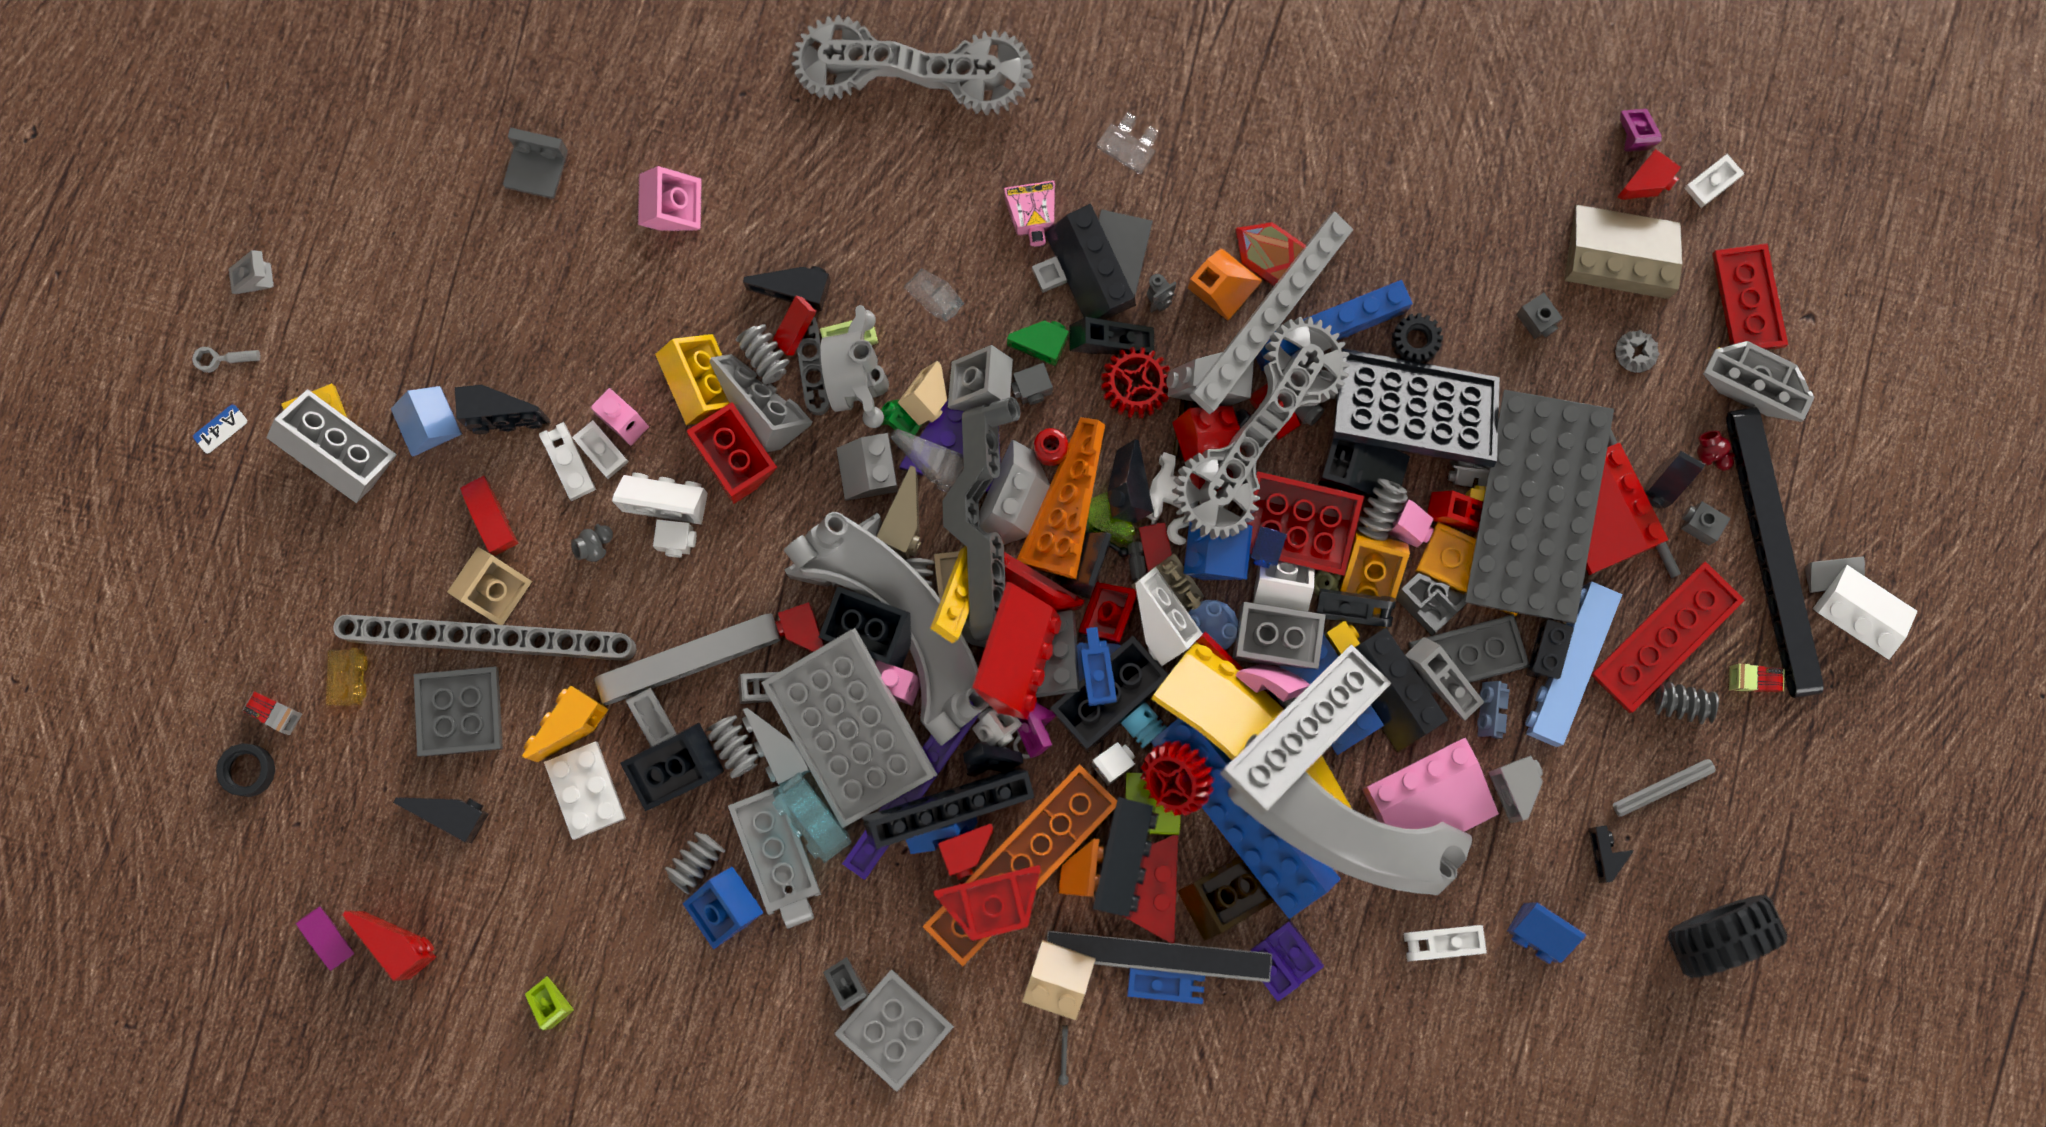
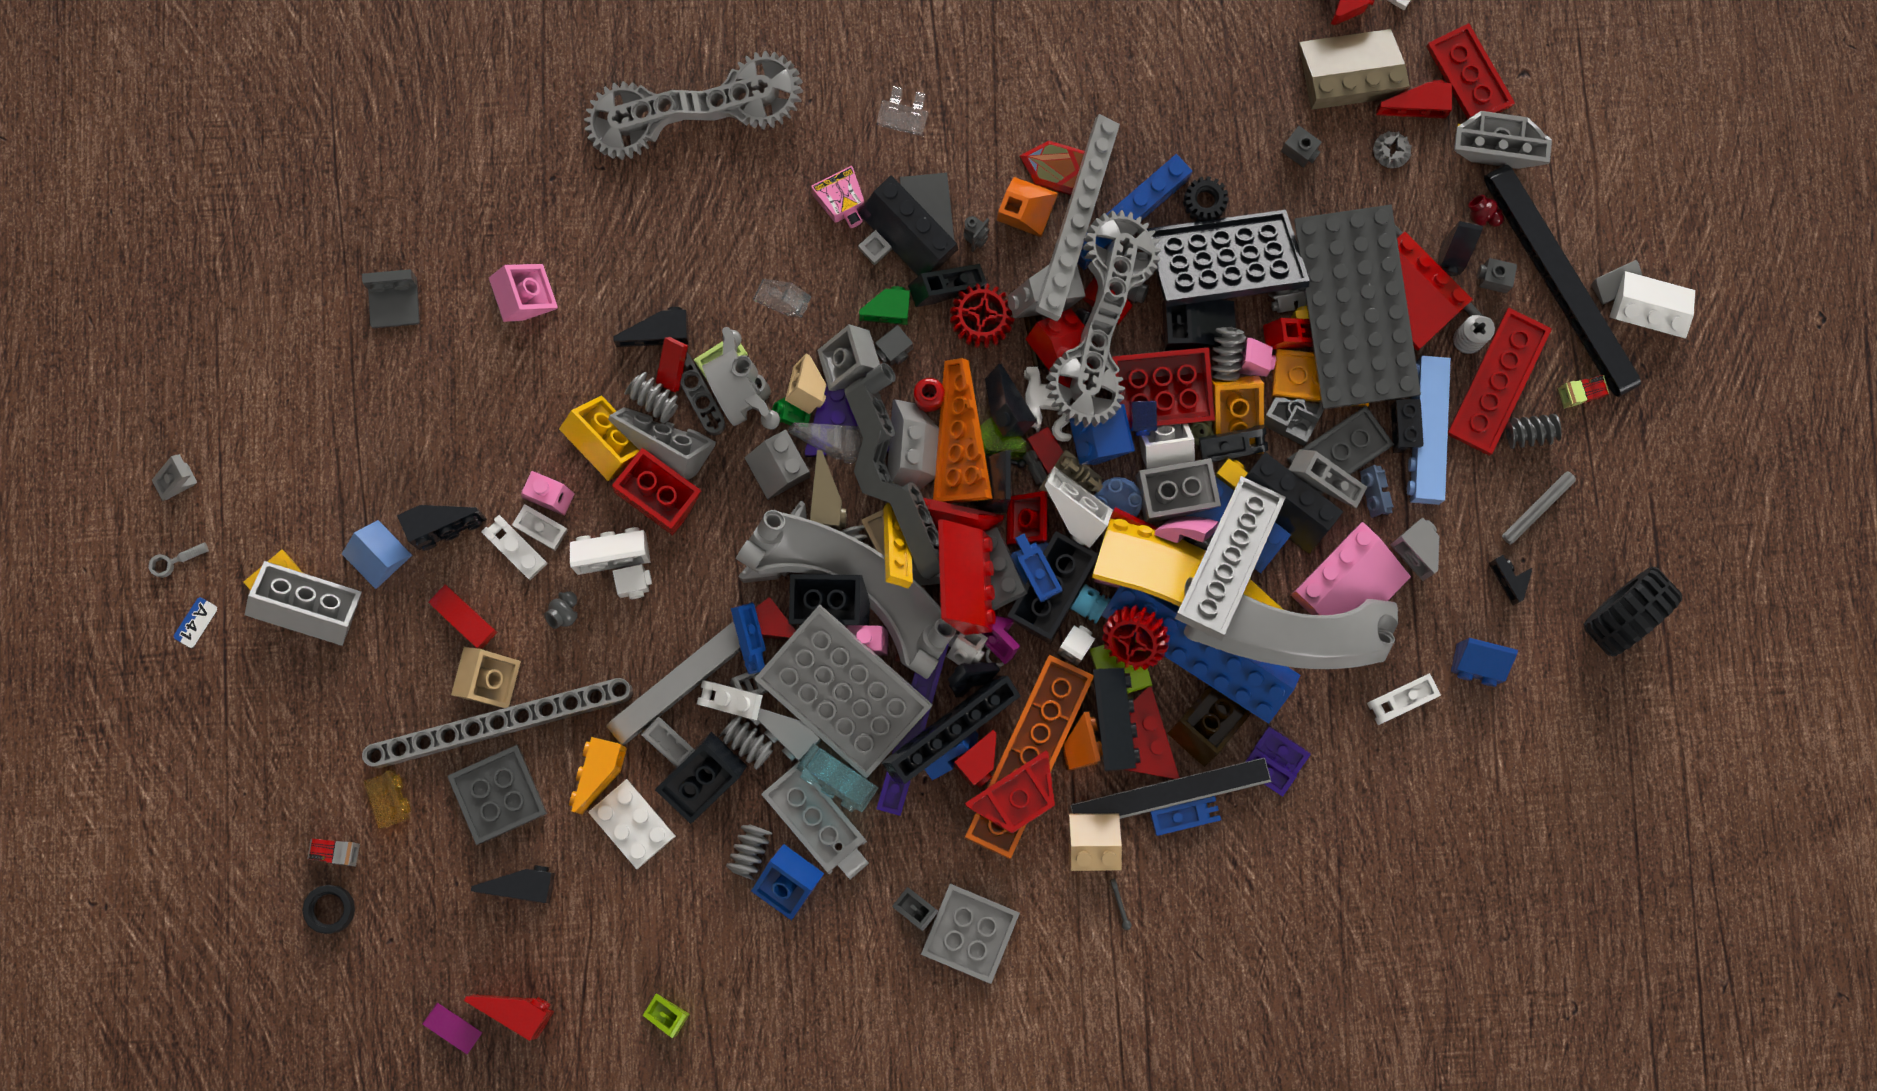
camera: 25 degrees left, 0 degrees up
(730, 696) = (730, 700): none -> white plate
(772, 636) = (749, 636): none -> blue hinge
(1656, 577) = (1473, 334): none -> light grey piece
(1691, 311) = (1424, 101): none -> red slope

